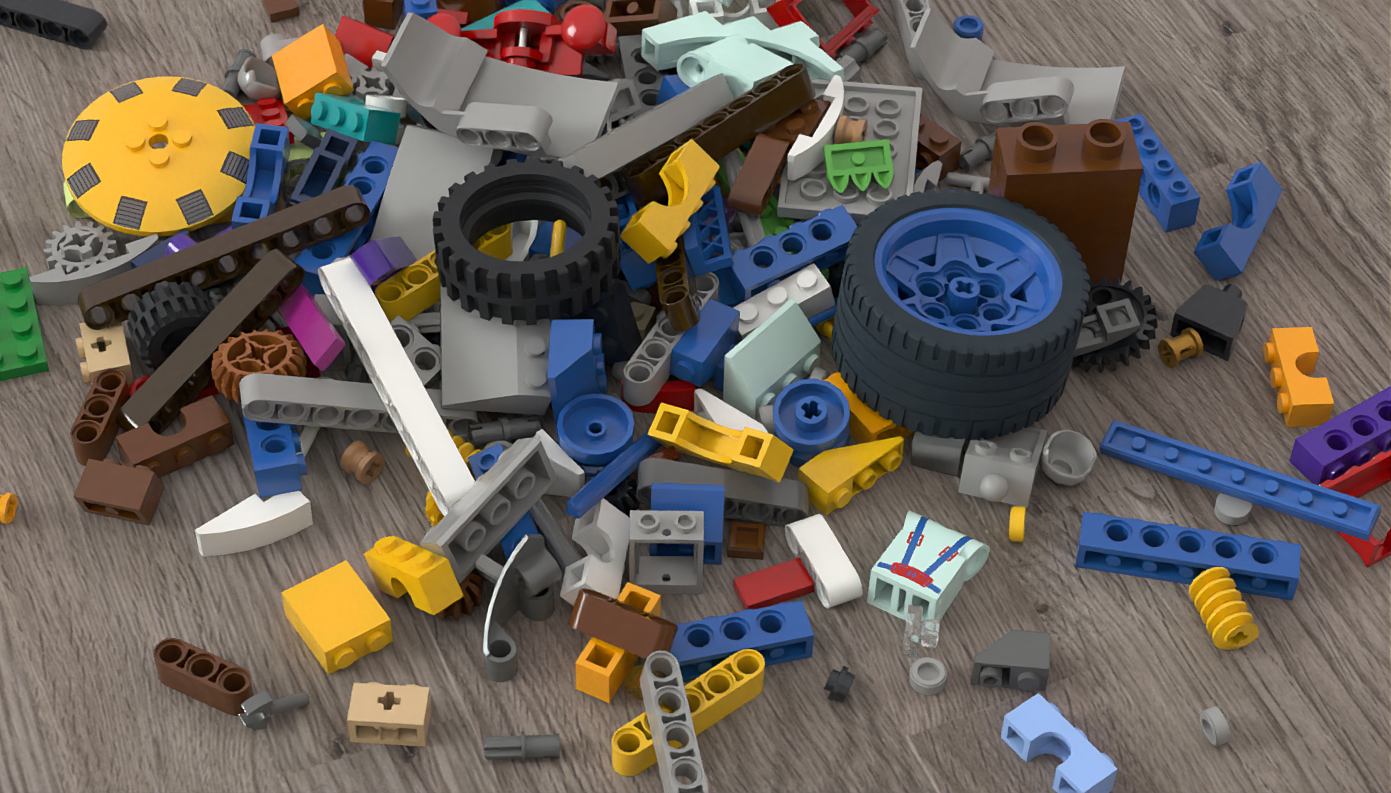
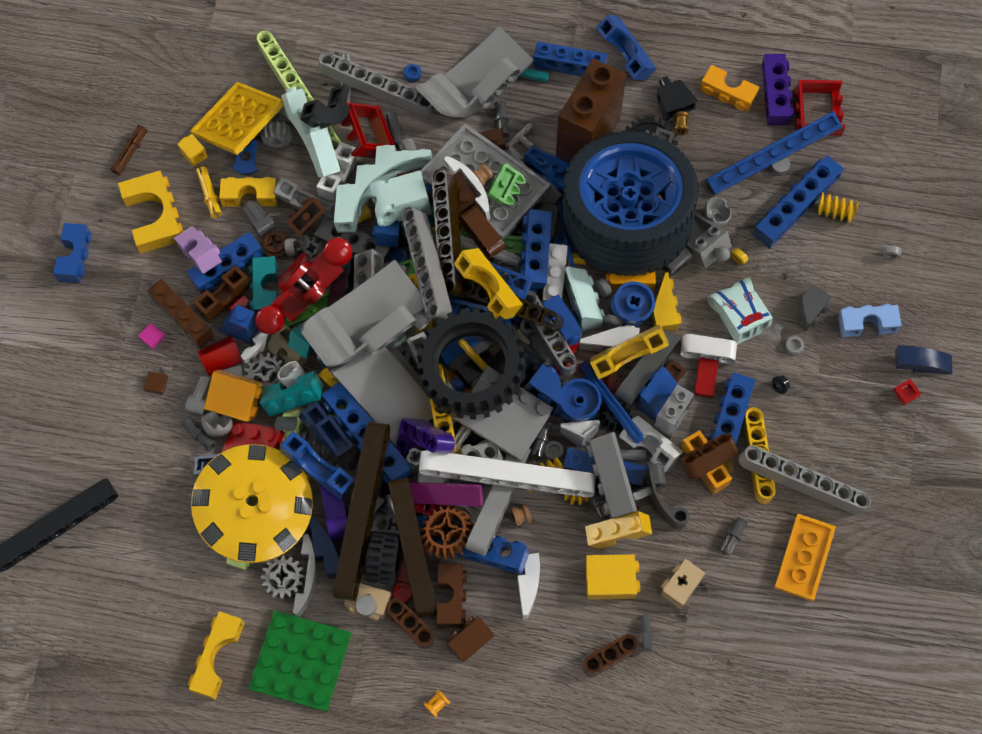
camera: 55 degrees left, 20 degrees up
(89, 343) = (366, 605): none -> light grey tile

